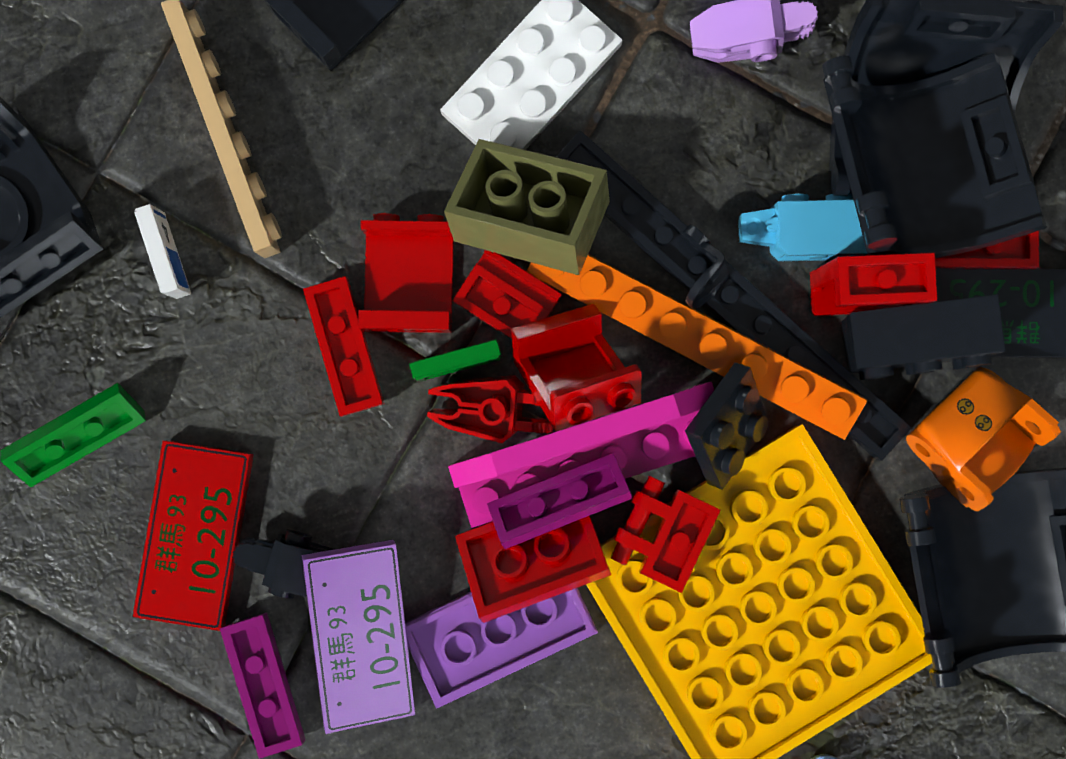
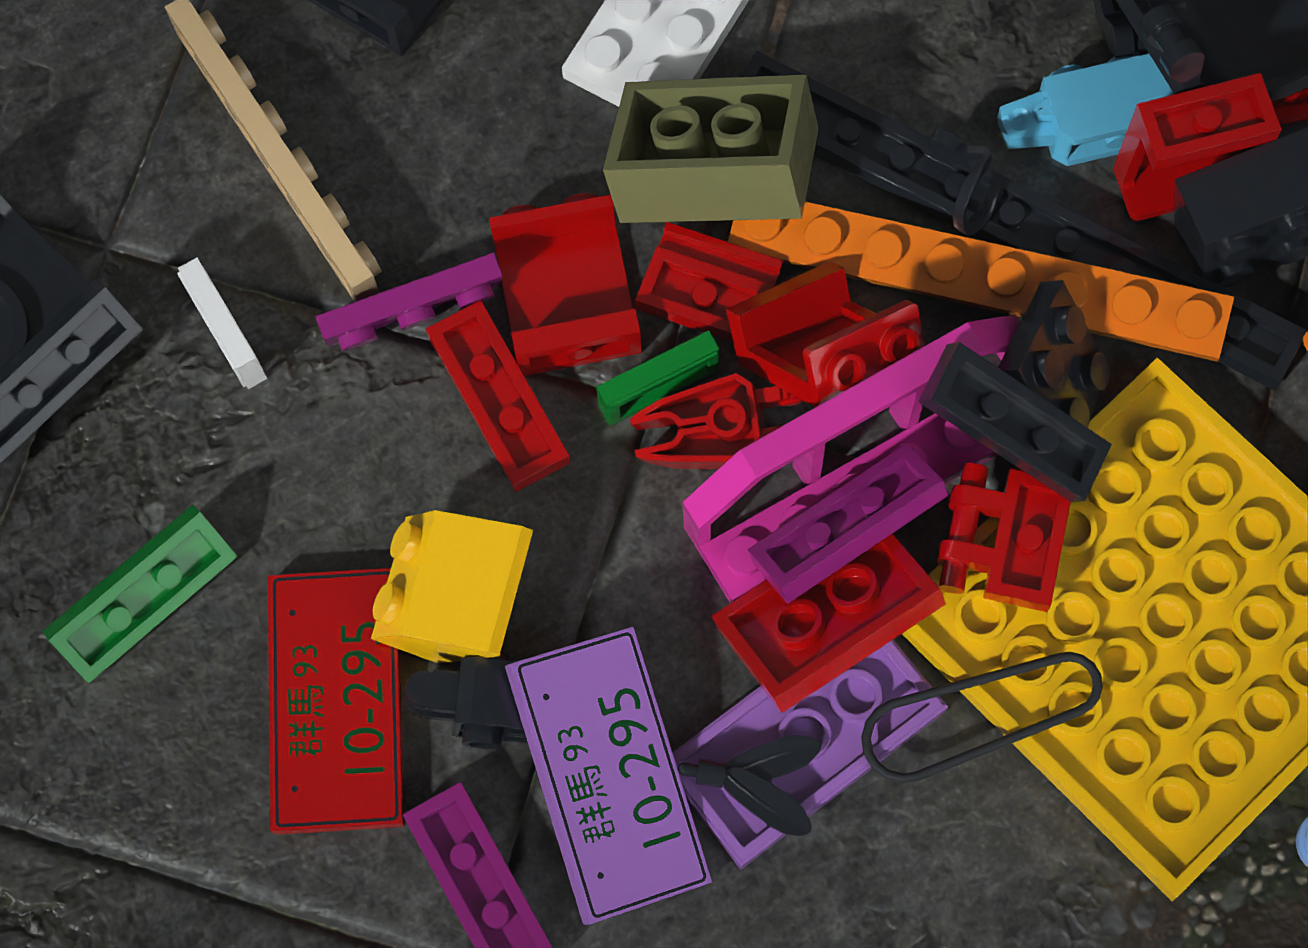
camera: 10 degrees left, 15 degrees down
(278, 486) = (450, 586): none -> yellow slope
(295, 267) = (410, 303): none -> magenta plate
(452, 656) = (748, 775): none -> black piece
(618, 670) = (994, 744): none -> black piece
(687, 470) = (1015, 422): none -> black plate

